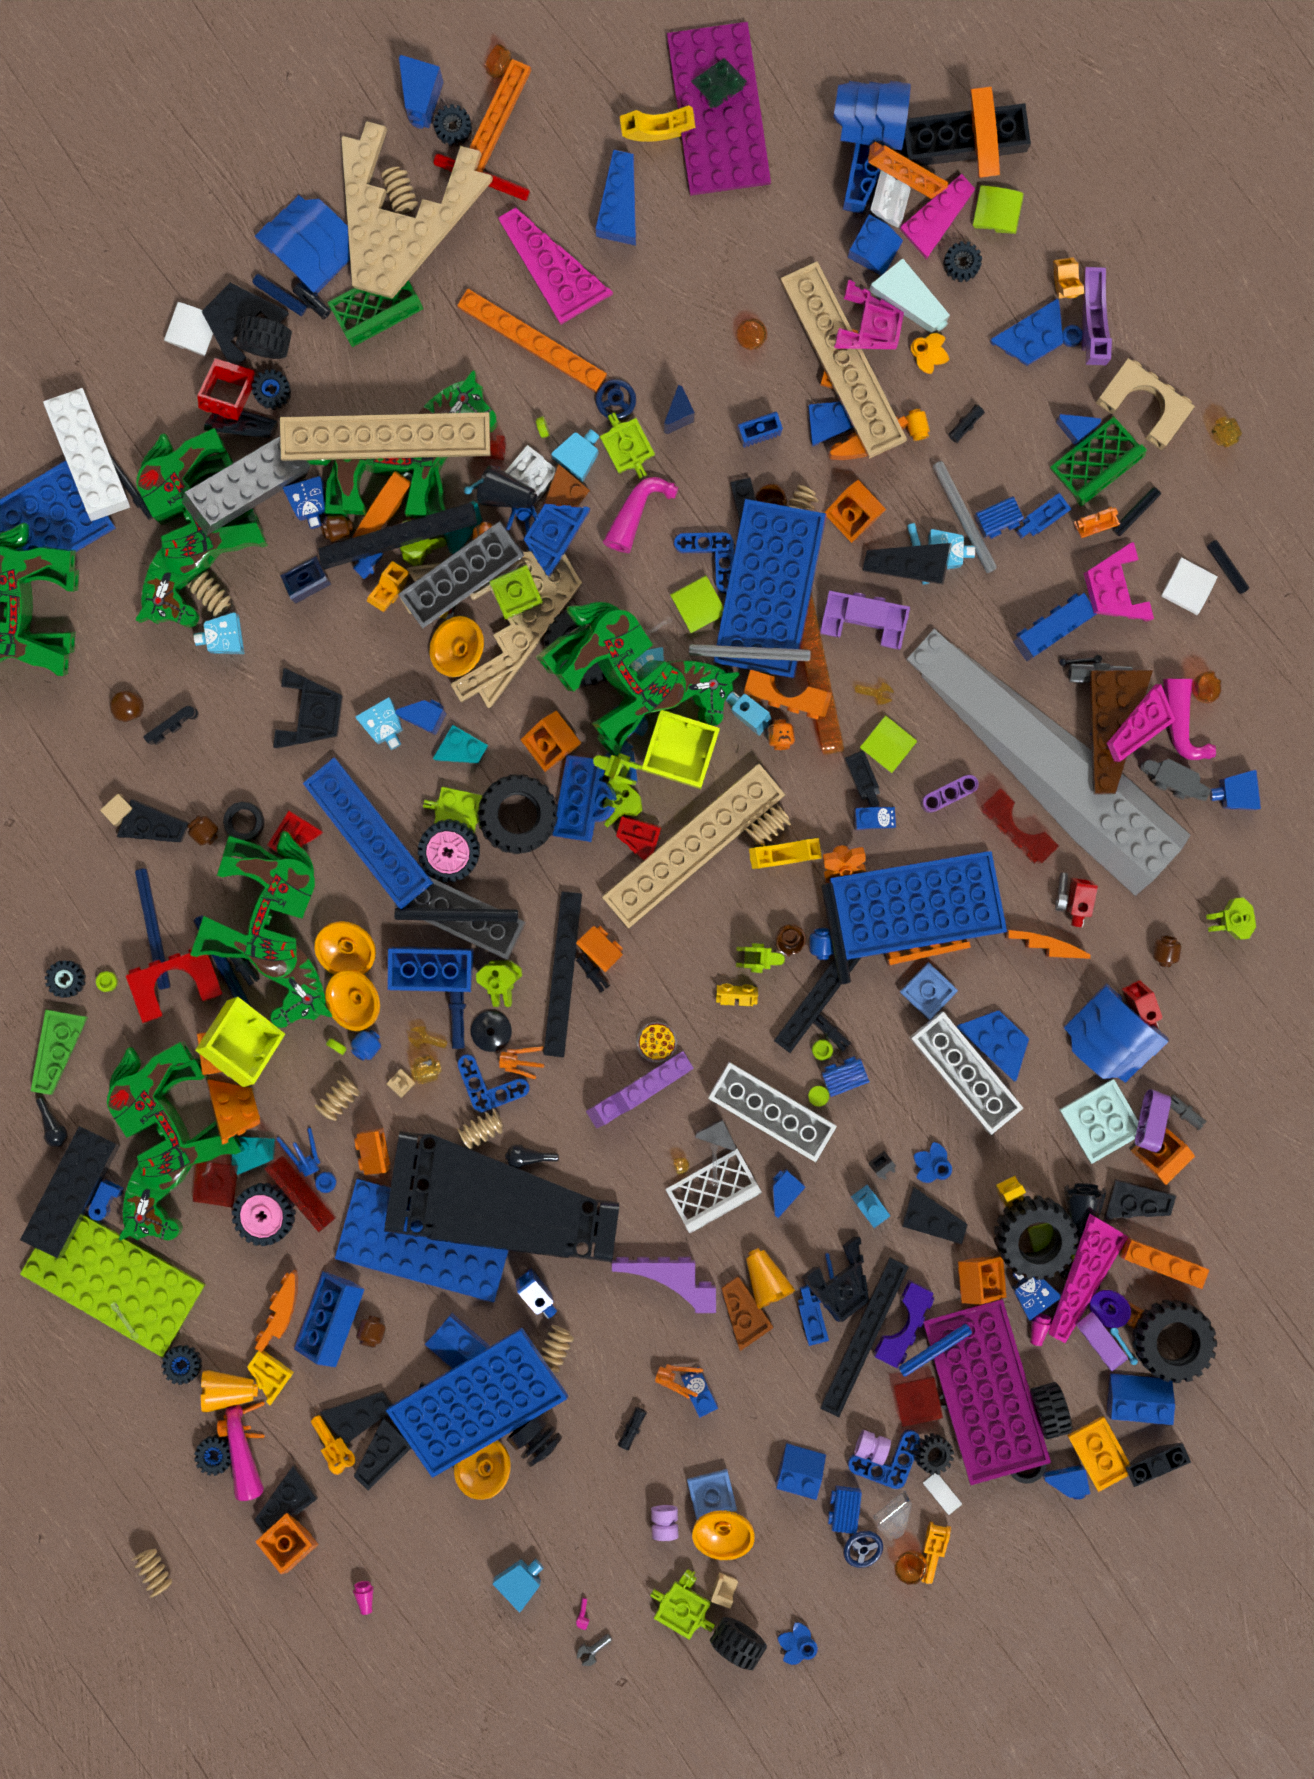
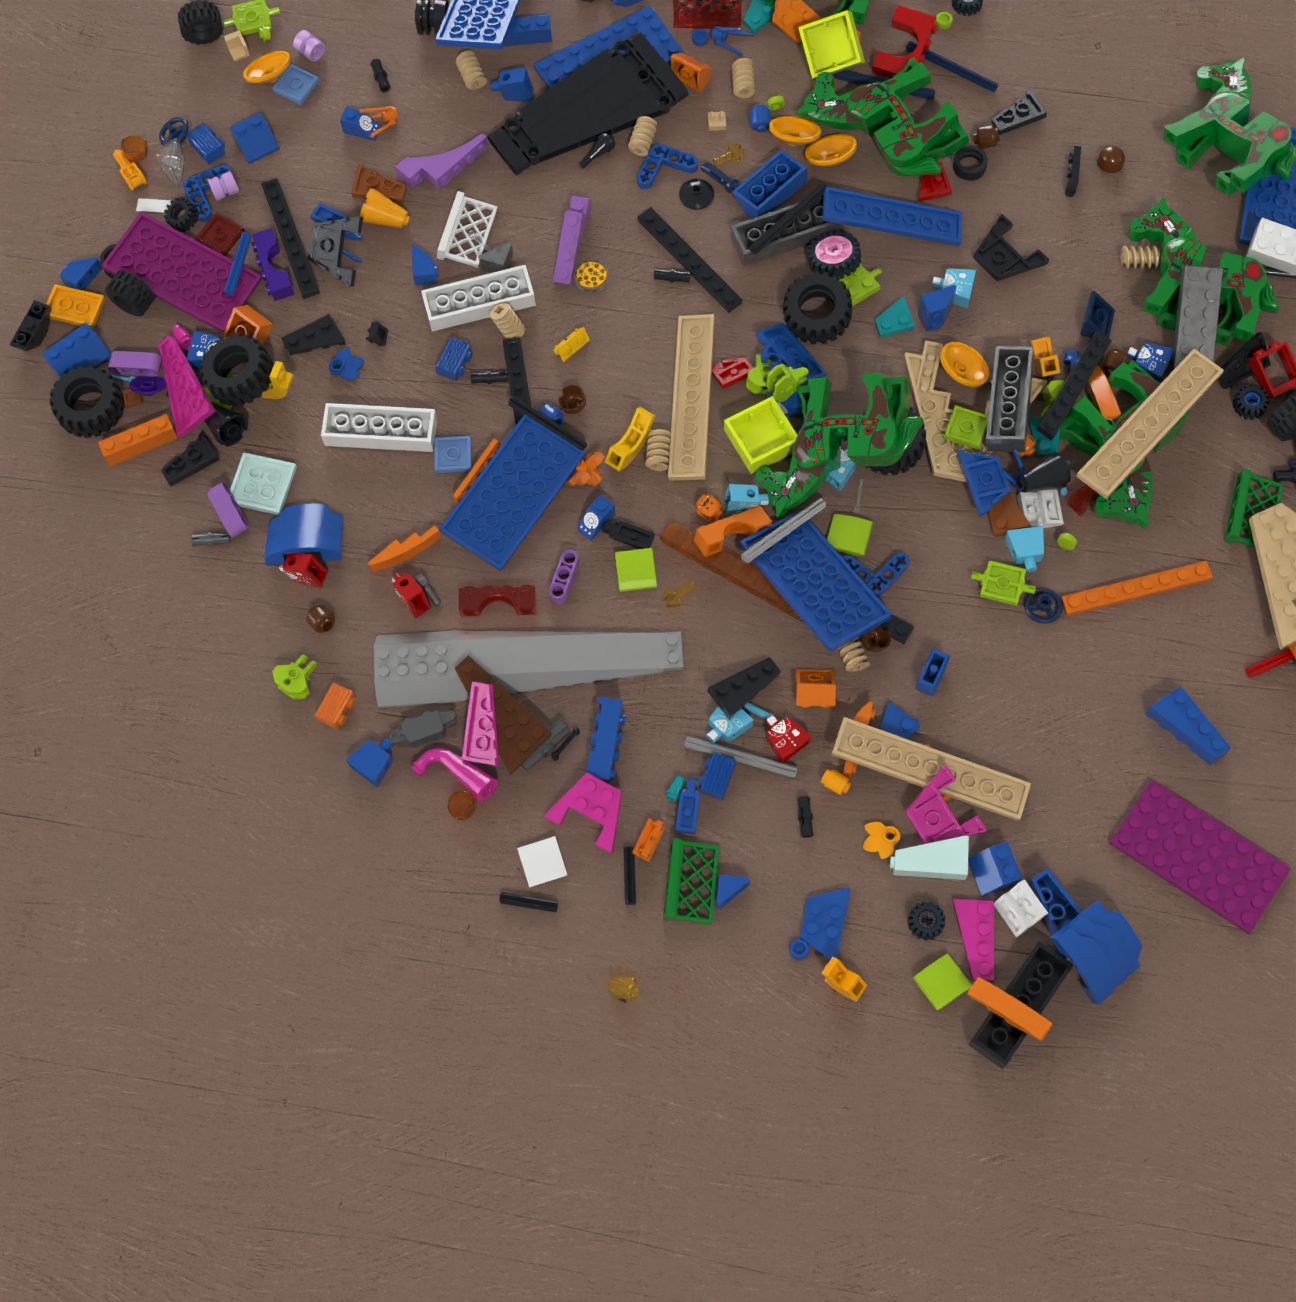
camera: 140 degrees right, 20 degrees down
(116, 809) = (1048, 100): tan panel -> none
(222, 635) = (1104, 243): medium azure torso -> none
(425, 1069) = (710, 136): clear yellow head -> none
(499, 979) = (721, 217): lime hinge -> none
(509, 1060) = (666, 186): orange plant -> none
(550, 741) = (846, 372): orange slope -> none
(559, 276) = (1167, 641): dark pink wing -> none
(600, 948) = (683, 285): orange slope -> none
(624, 527) = (946, 531): dark pink animal -> none
(659, 127) = (1225, 794): yellow arch -> none
(680, 412) = (997, 631): dark blue slope -> none
(681, 1165) = (502, 225): clear yellow hinge -> none
(719, 82) = (1218, 864): clear green hinge -> none
(751, 334) = (1007, 732): clear orange hair -> none
(759, 958) = (581, 369): lime hinge -> none
(772, 1063) = (507, 321): none -> tan piece
(794, 1643) = (163, 59): blue plate -> none
(818, 1095) = (459, 333): lime tile -> none
(822, 1050) = (484, 363): lime tile -> none
(865, 612) = (737, 630): medium lavender bracket -> none
(870, 1206) = (360, 303): dark azure torso -> none
(906, 170) = (1033, 931): orange fence -> none
(918, 494) = (786, 737): none -> red torso
(998, 1041) = (378, 469): blue wing -> none
(1038, 541) = (673, 793): none -> teal pin
(1095, 329) = (793, 968): medium lavender arch -> none
(1168, 1160) = (195, 502): orange slope -> none
(1173, 406) = (677, 969): tan arch -> none
(1223, 866) = (335, 706): none -> orange brick

